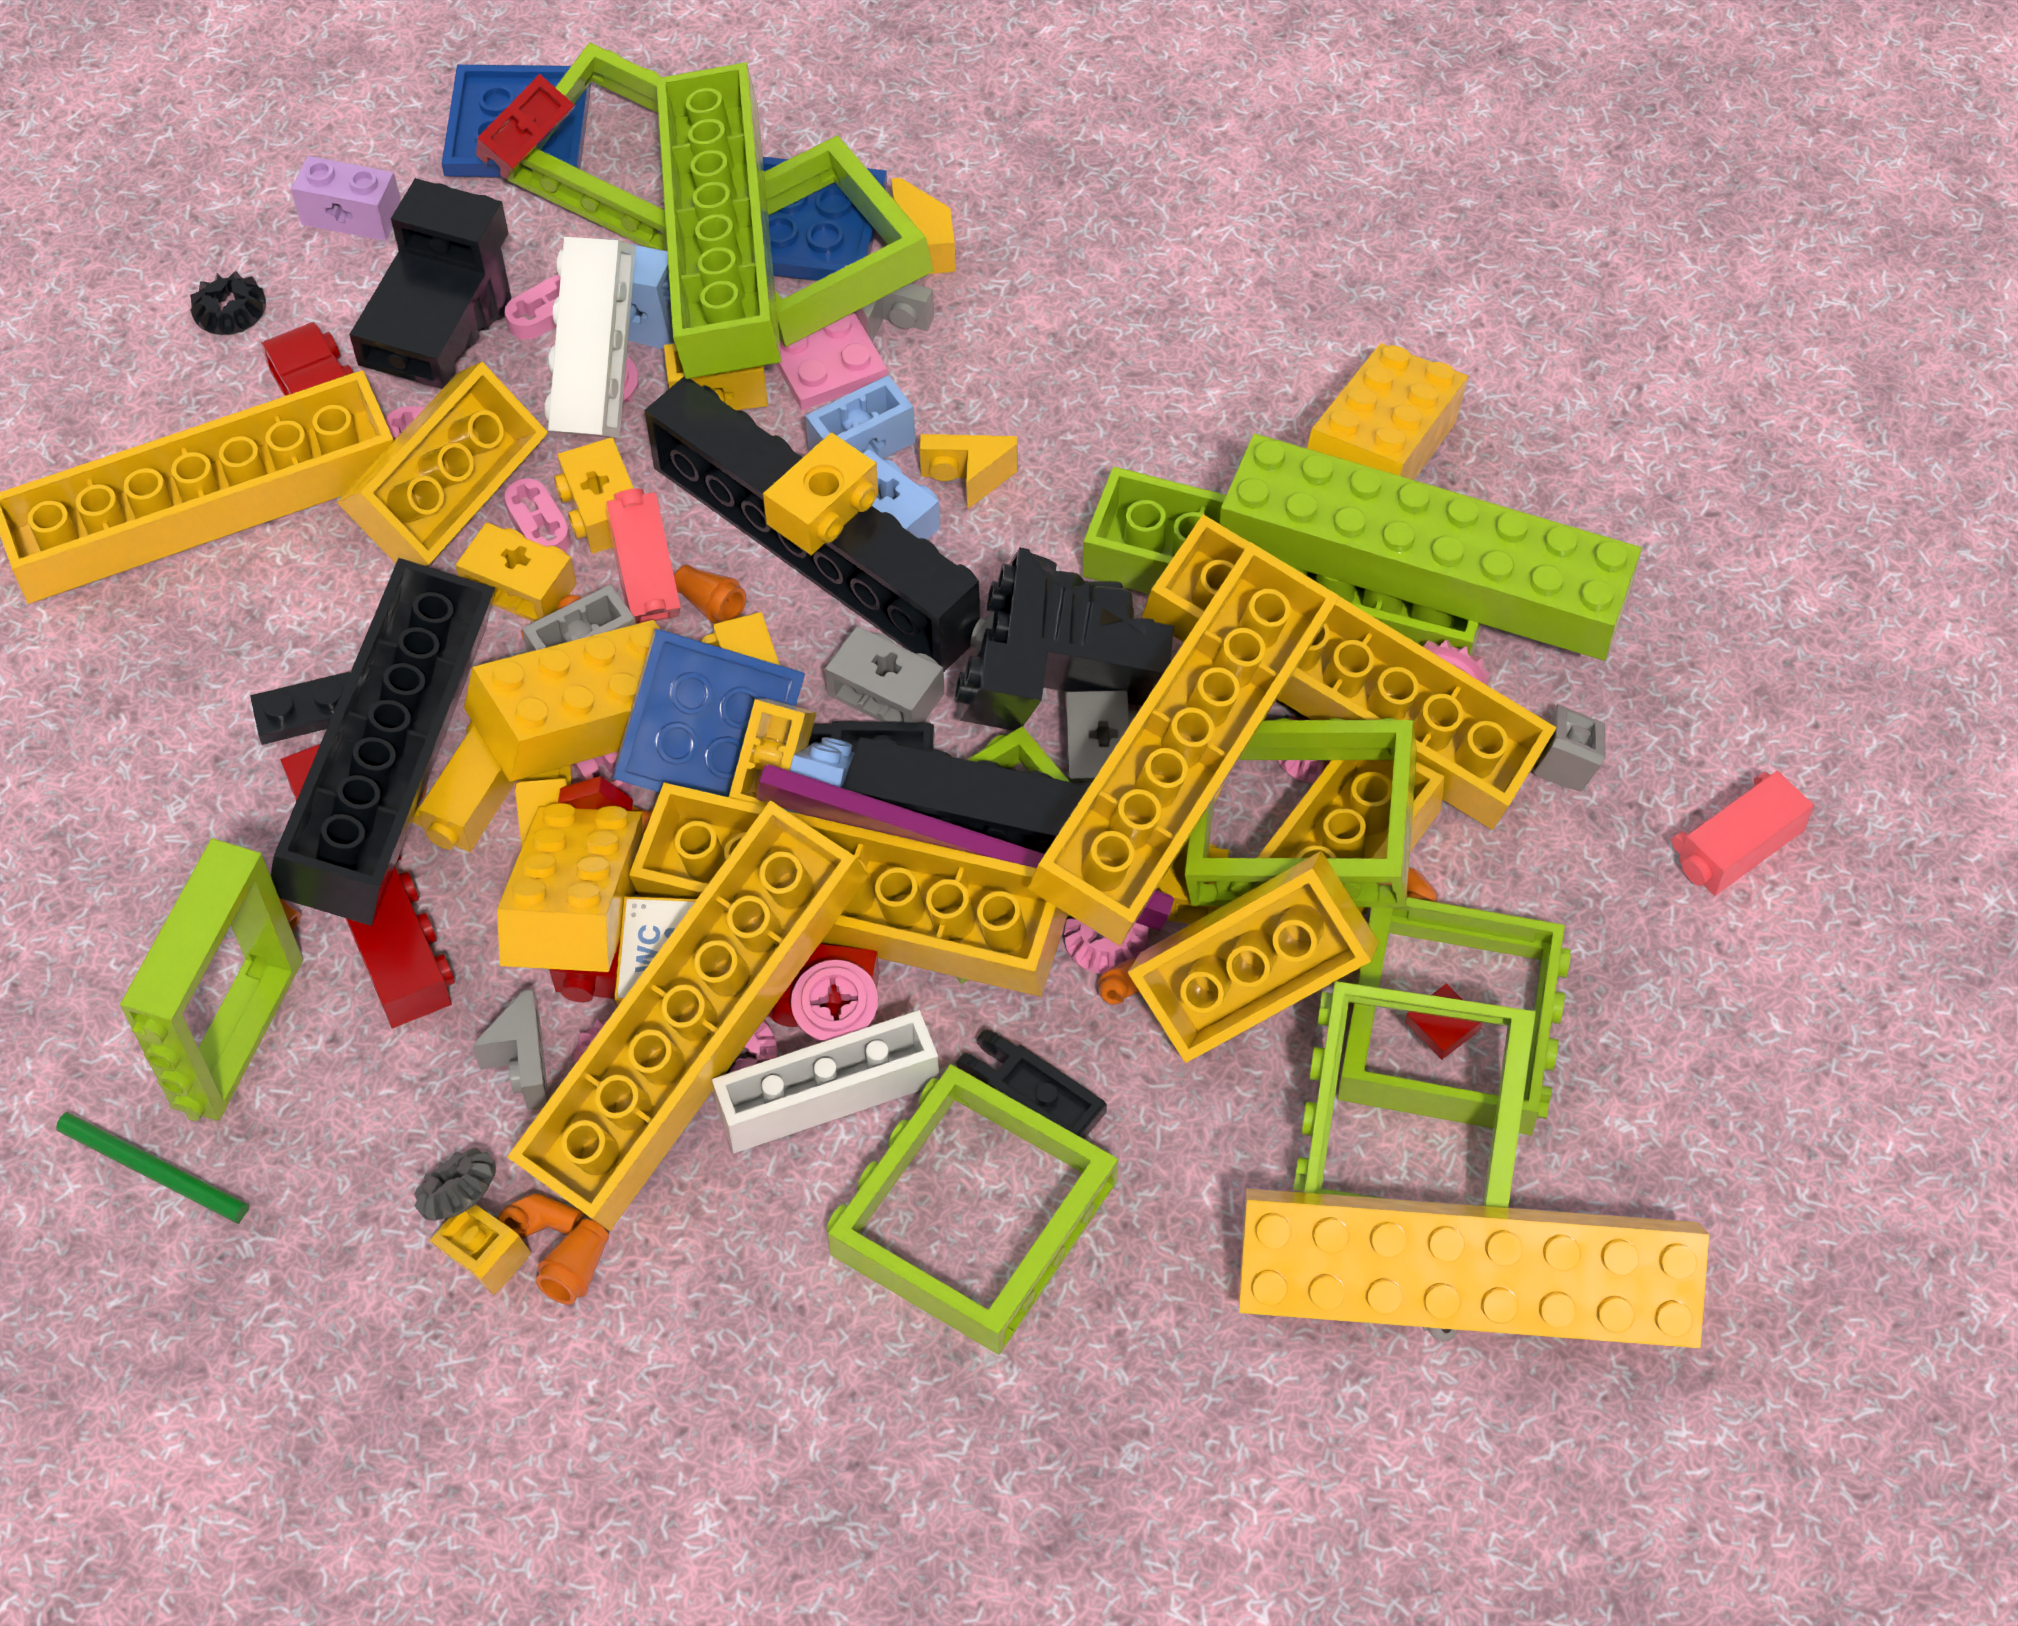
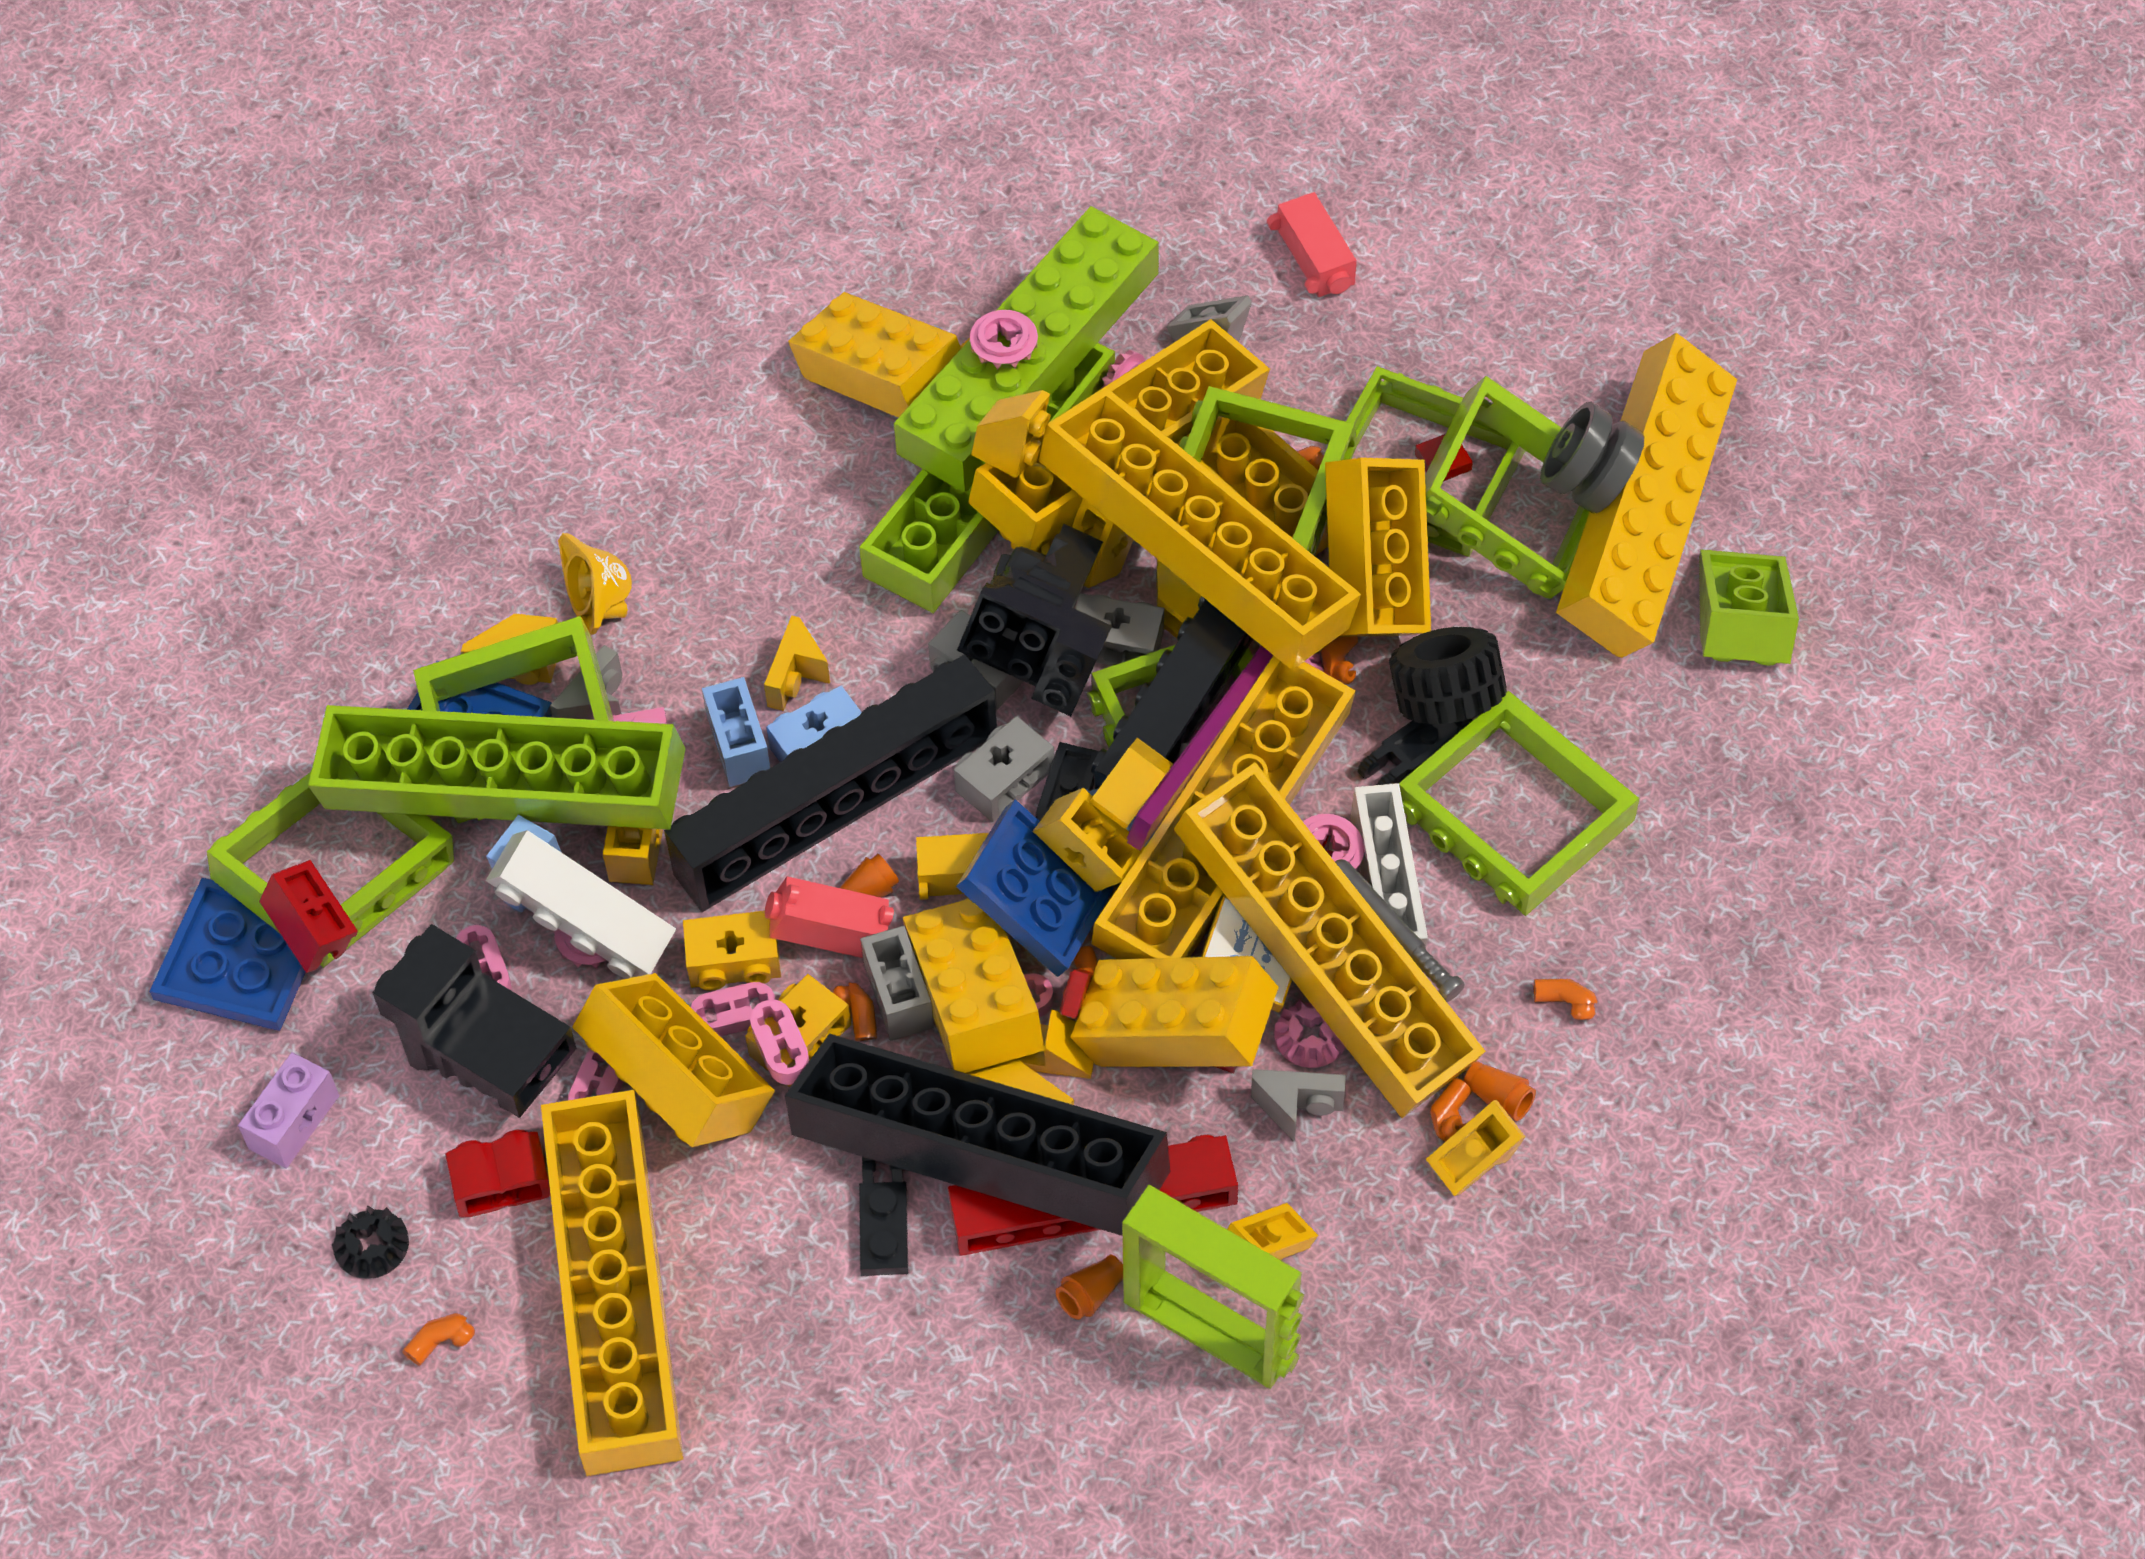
camera: 75 degrees left, 0 degrees up
(136, 375) = (436, 1331): none -> orange arm
(152, 1167) = (1331, 1407): green bar -> none
(332, 1053) = (1276, 1231): none -> yellow slope
(455, 1185) = (1431, 1158): dark grey gear -> none
(475, 546) = (771, 1045): none -> bright pink beam
(724, 1319) = (1568, 991): none -> orange arm
(731, 1071) = (1448, 986): none -> flat silver piece
(821, 493) = (855, 761): yellow brick -> none
(835, 758) = (1131, 783): none -> yellow slope
(1020, 274) = (594, 582): none -> yellow hat
(1115, 1084) = (1448, 675): none -> black tyre
(1243, 518) = (1012, 432): none -> yellow slope
(1350, 1425) = (1746, 607): none -> lime slope
(1396, 479) = (1014, 327): none -> bright pink gear
(1462, 1163) = (1592, 457): none -> dark grey wheel

